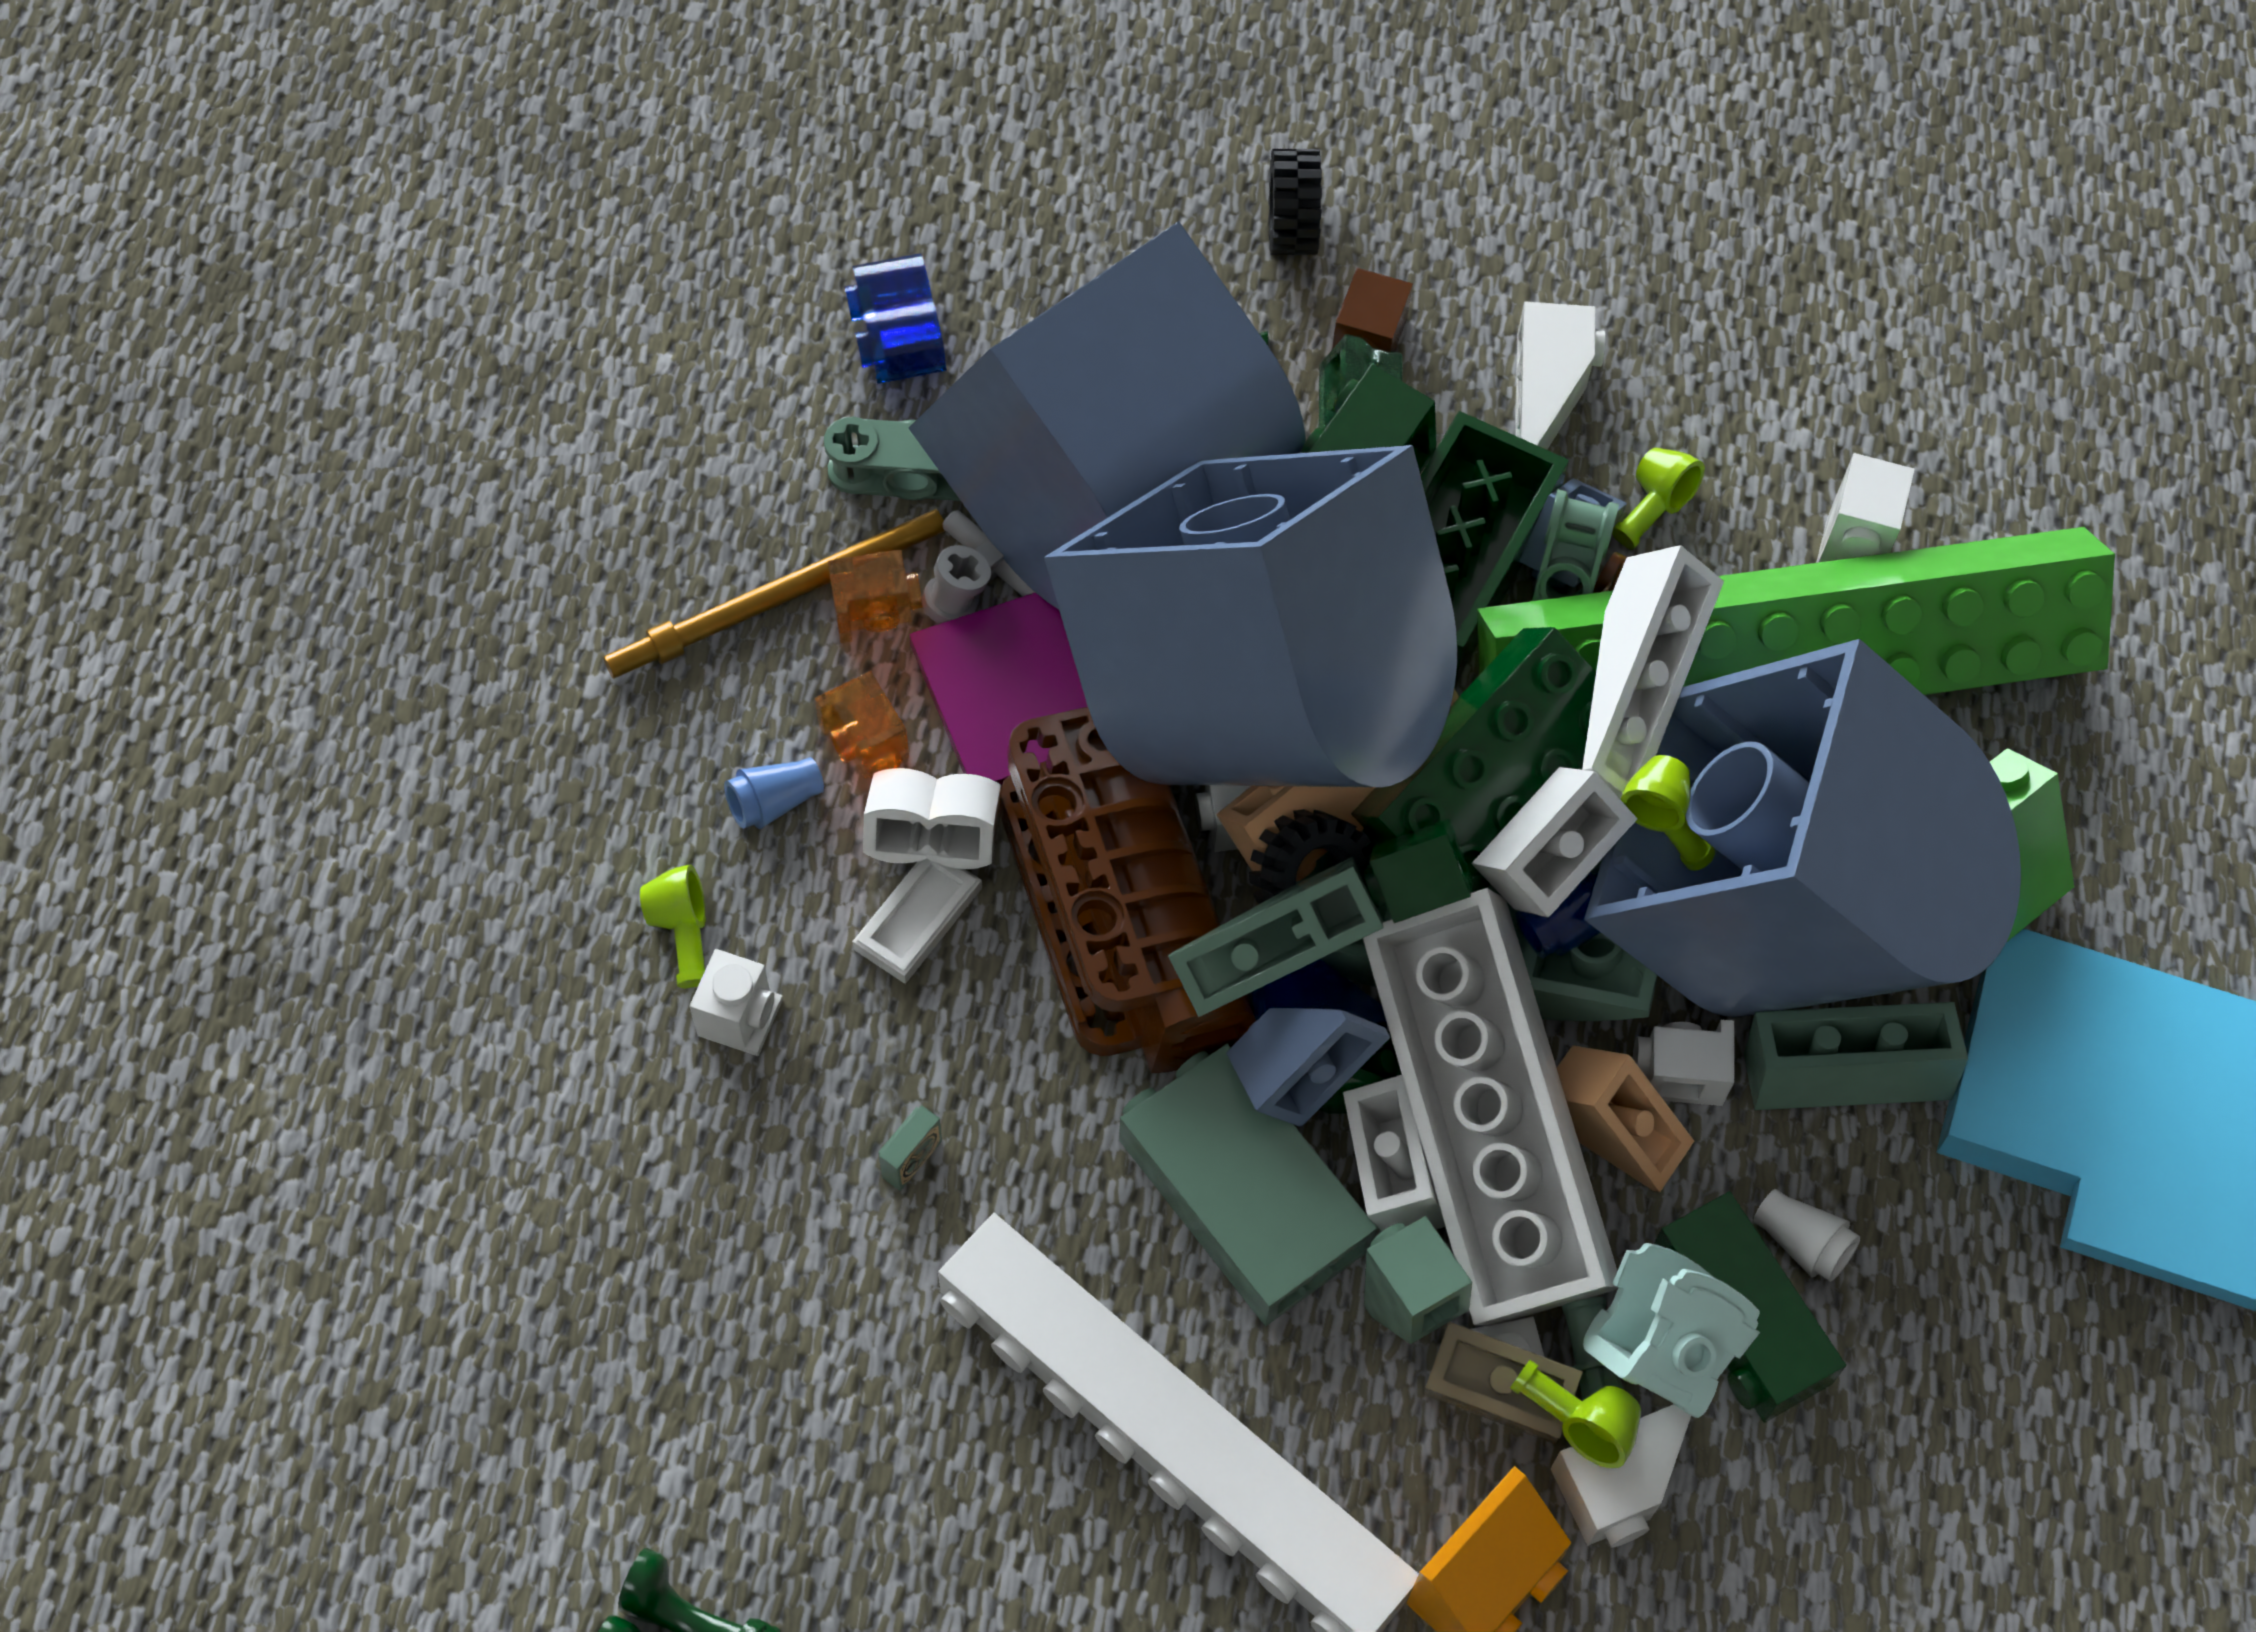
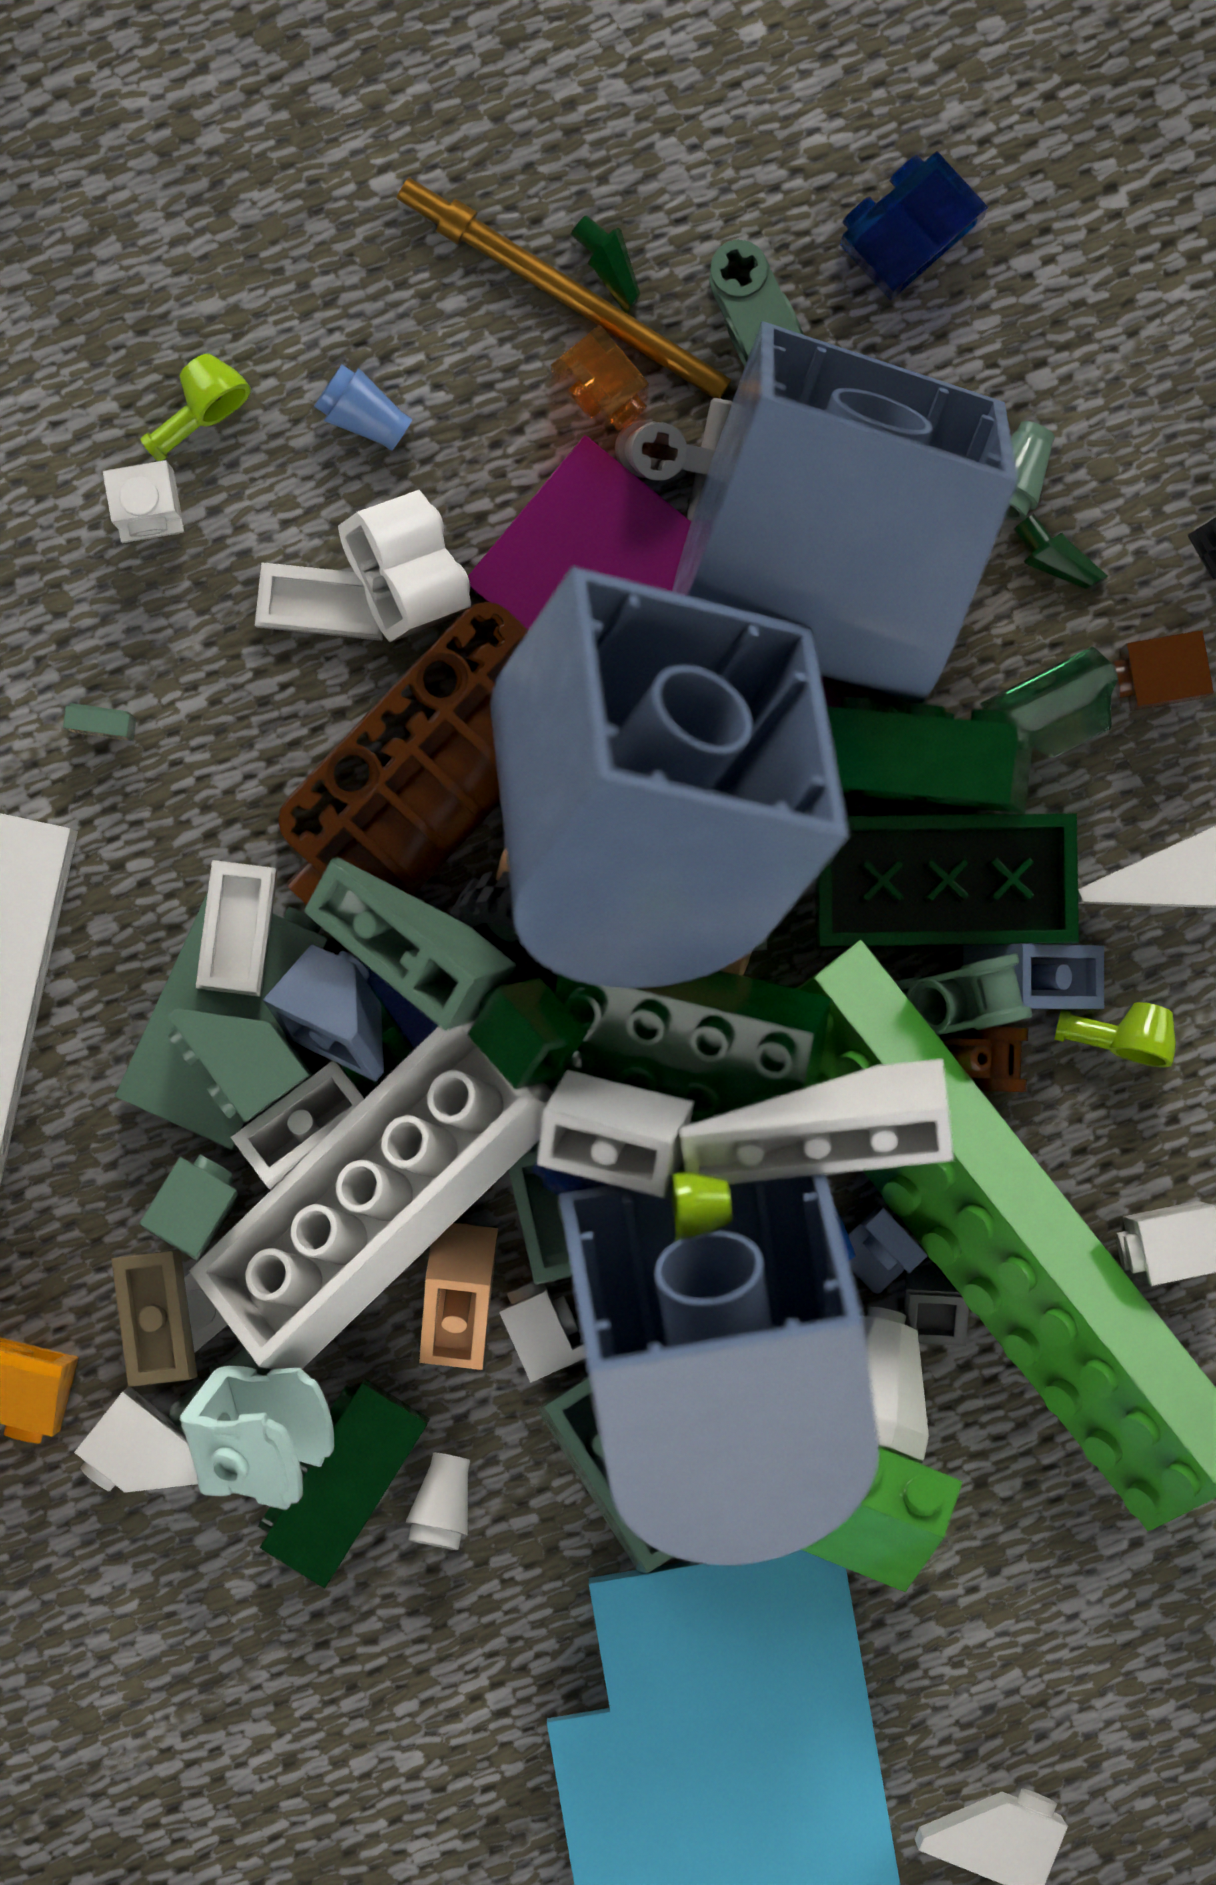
camera: 65 degrees right, 25 degrees up
(776, 548) = (609, 261): none -> dark green bar
(863, 725) = (464, 454): clear orange brick -> none
(1174, 1110) = (236, 928): none -> white tile
(1299, 1158) = (244, 1056): none -> sand green slope
(1598, 1428) = (152, 1414): lime bar -> none

